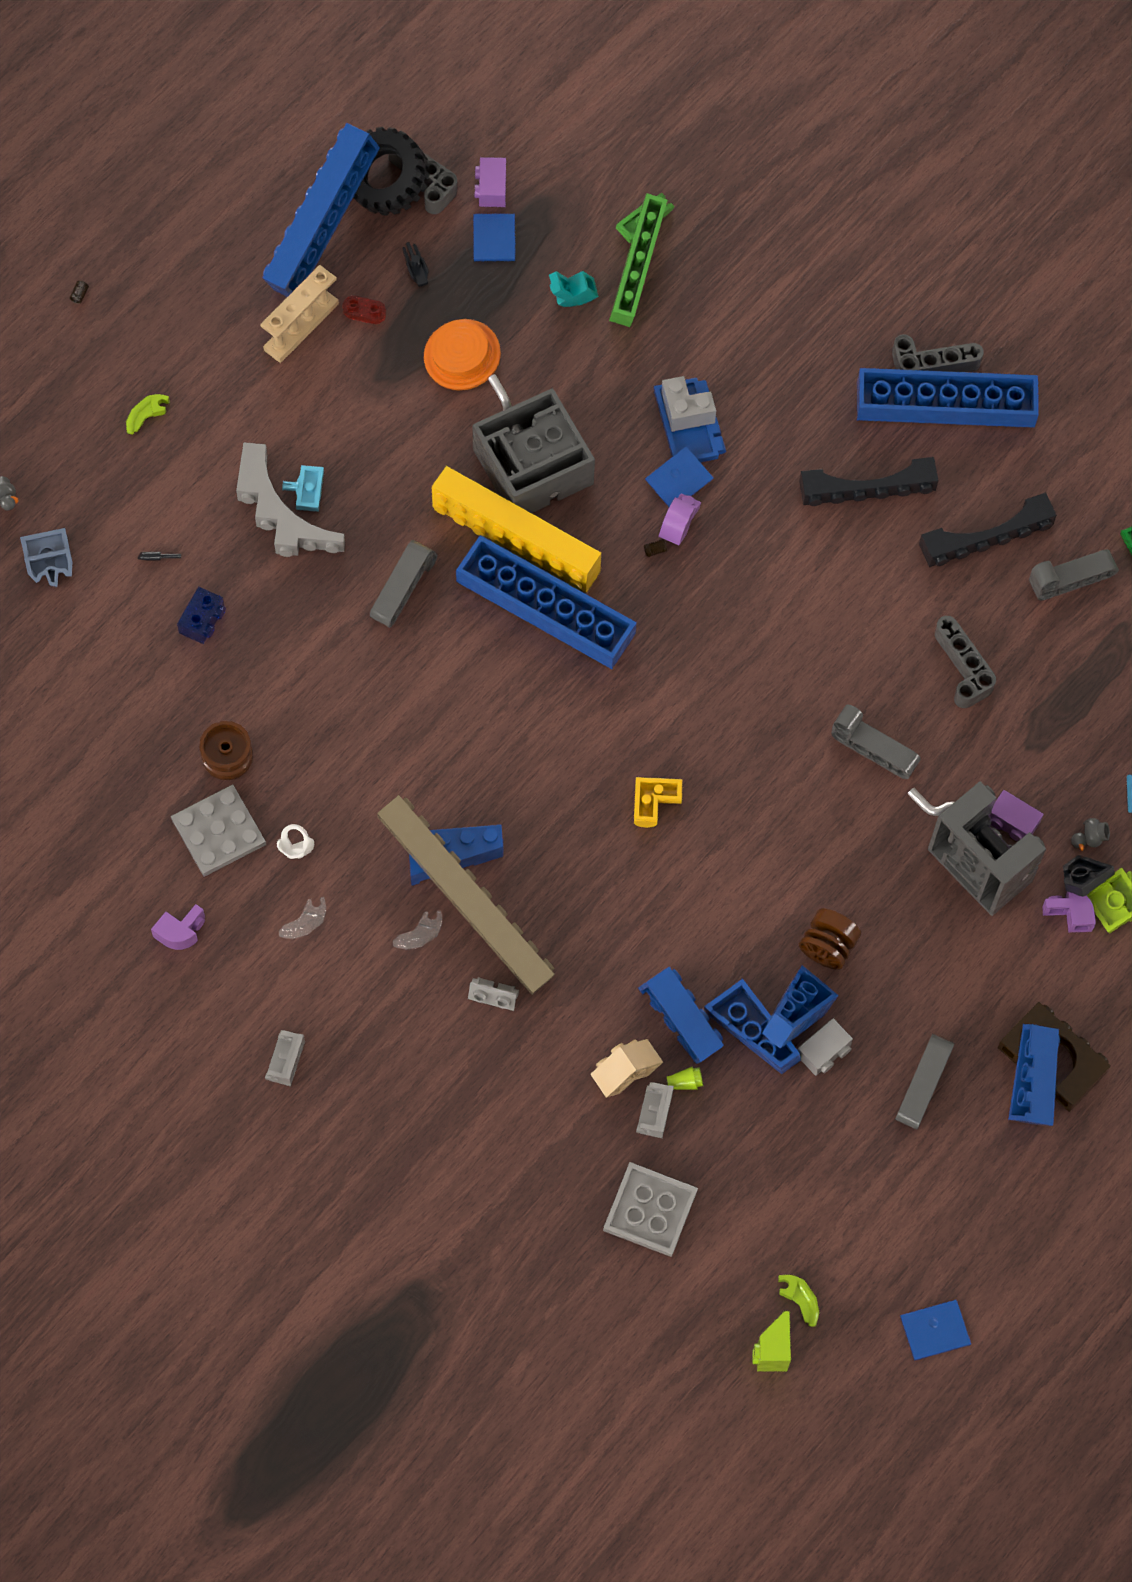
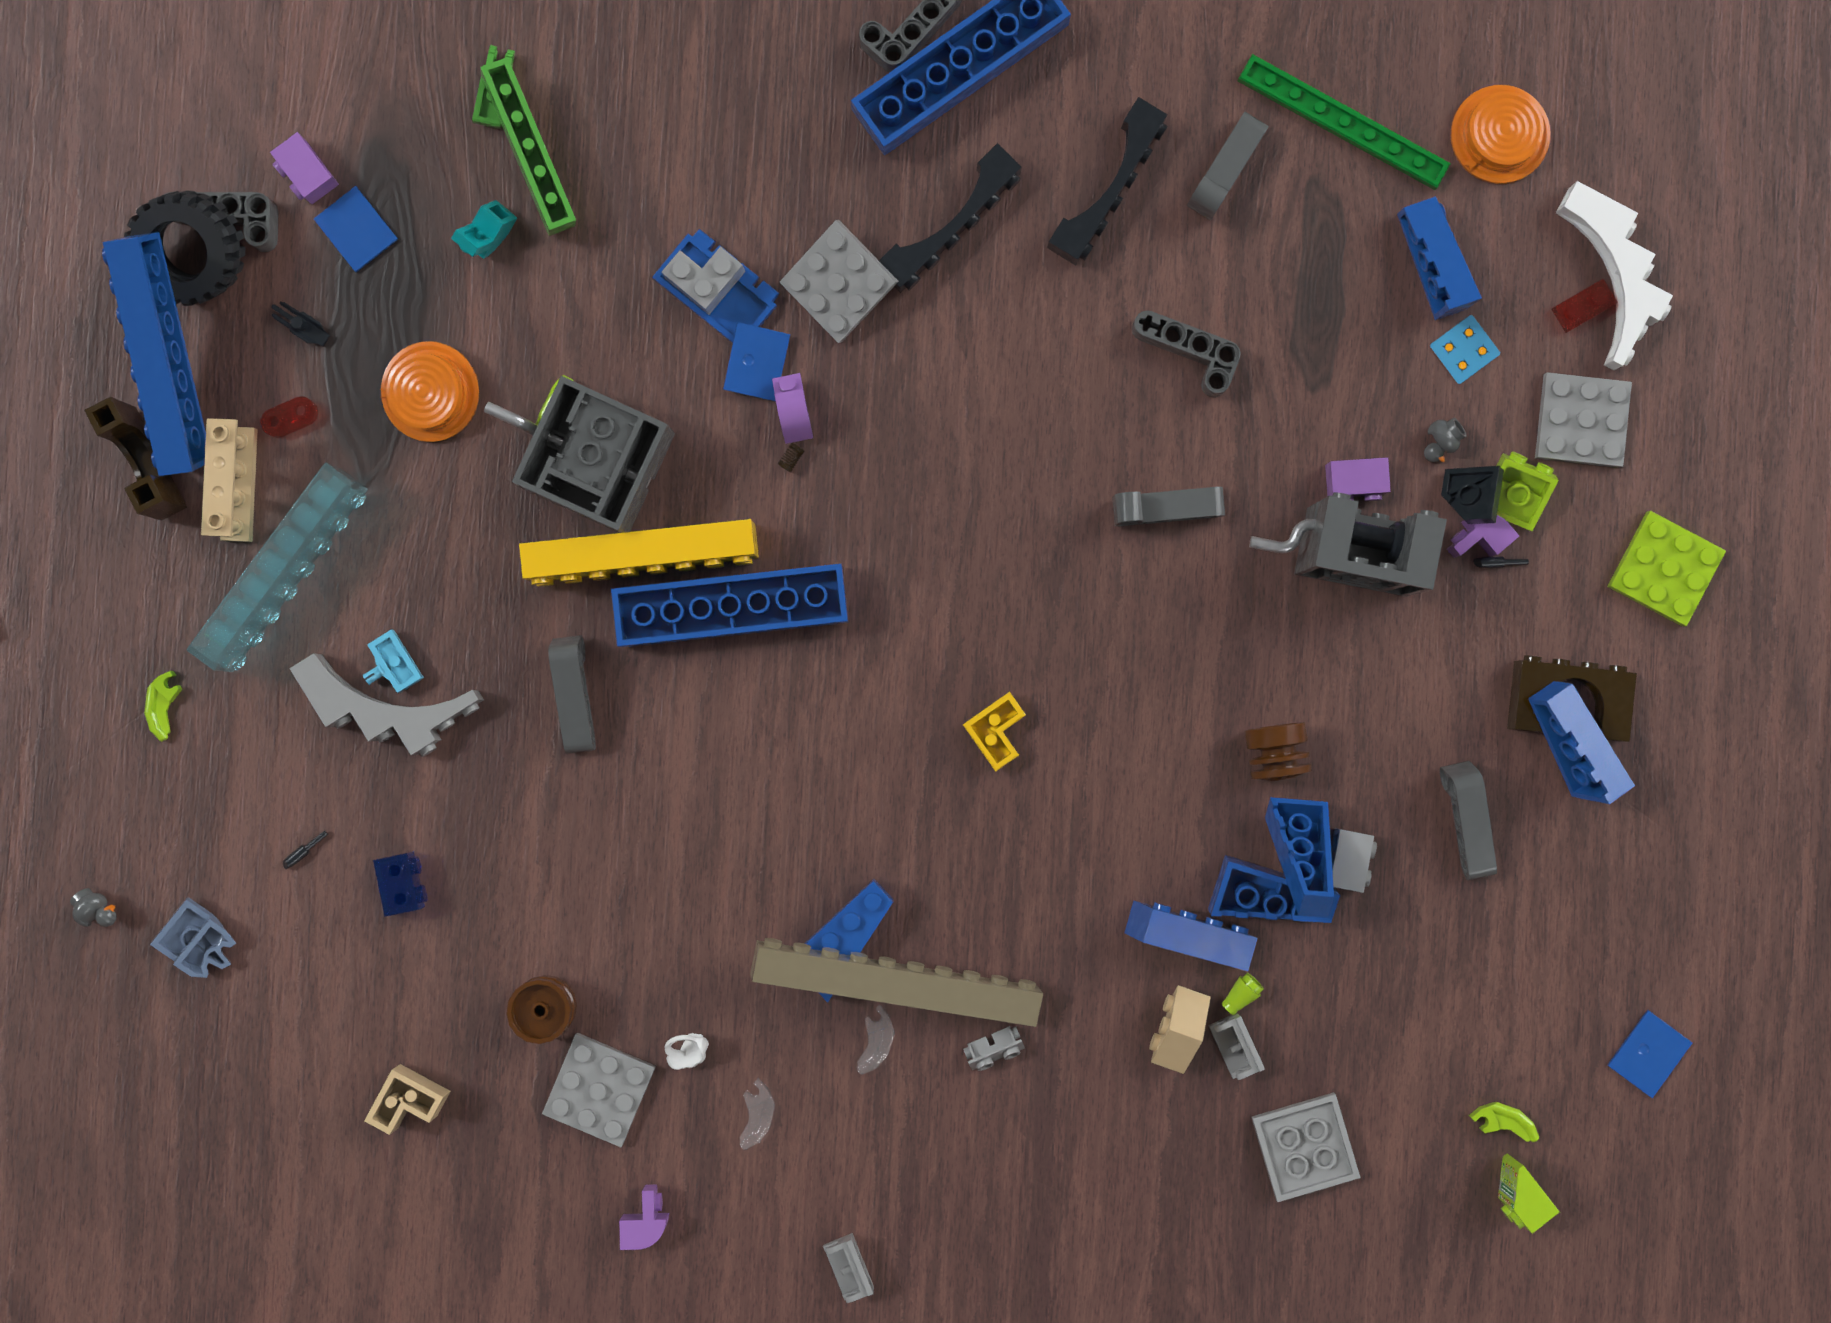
camera: 35 degrees left, 20 degrees up
(97, 736) = (403, 1093): none -> tan brick
(249, 281) = (122, 424): none -> dark brown arch
(286, 383) = (278, 569): none -> clear light blue brick
(768, 467) = (838, 281): none -> light grey plate
(1070, 937) = (1498, 562): none -> black piece

